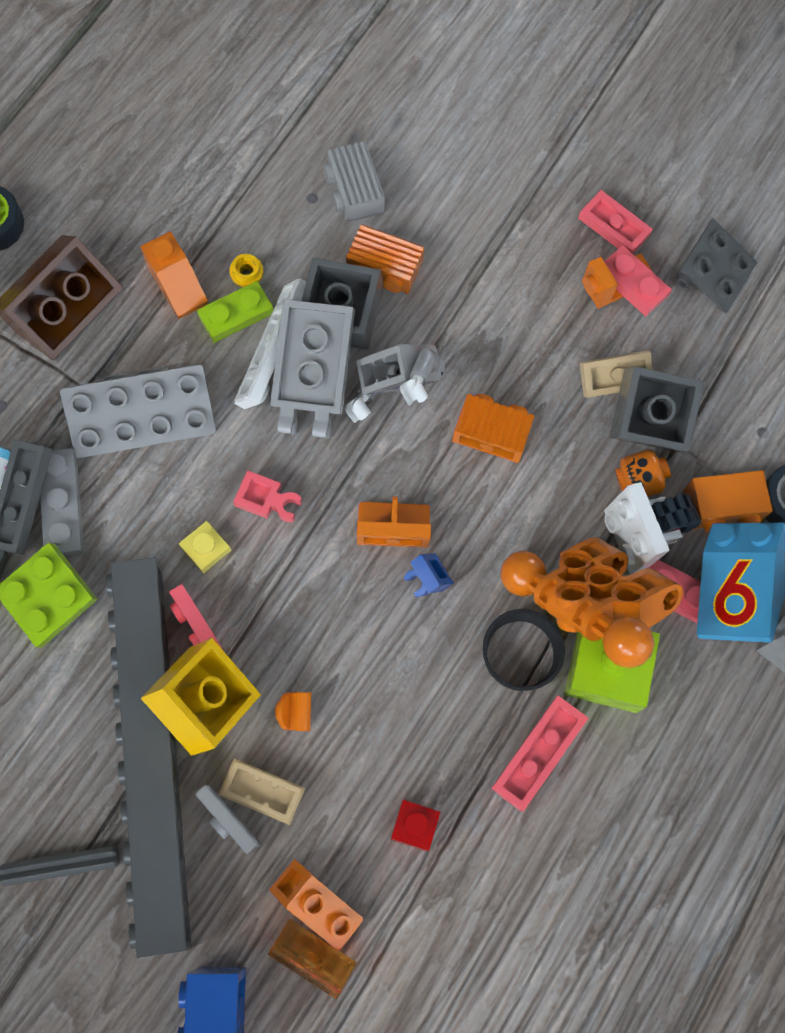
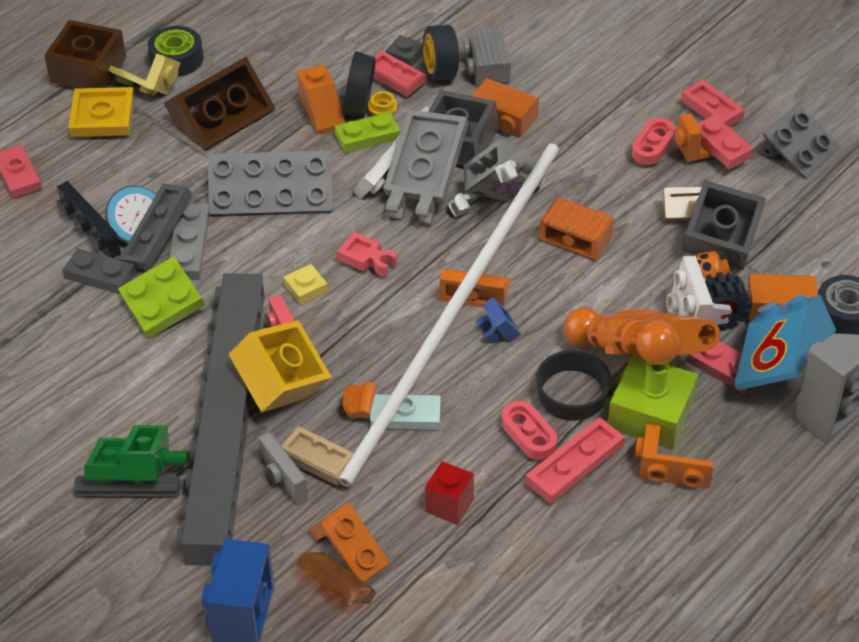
camera: 15 degrees right, 25 degrees down
(56, 839) = (133, 458): none -> green plate
(216, 254) = (359, 84): none -> black tyre
(251, 220) = (397, 74): none -> coral plate
(257, 182) = (406, 50): none -> dark grey plate
(301, 190) = (440, 52): none -> black wheel
(347, 712) = (415, 412): none -> light aqua plate
(377, 585) = (446, 318): none -> white piece
(487, 717) = (532, 432): none -> coral plate
(558, 288) = (653, 141): none -> coral plate
(615, 730) = (670, 468): none -> orange bracket

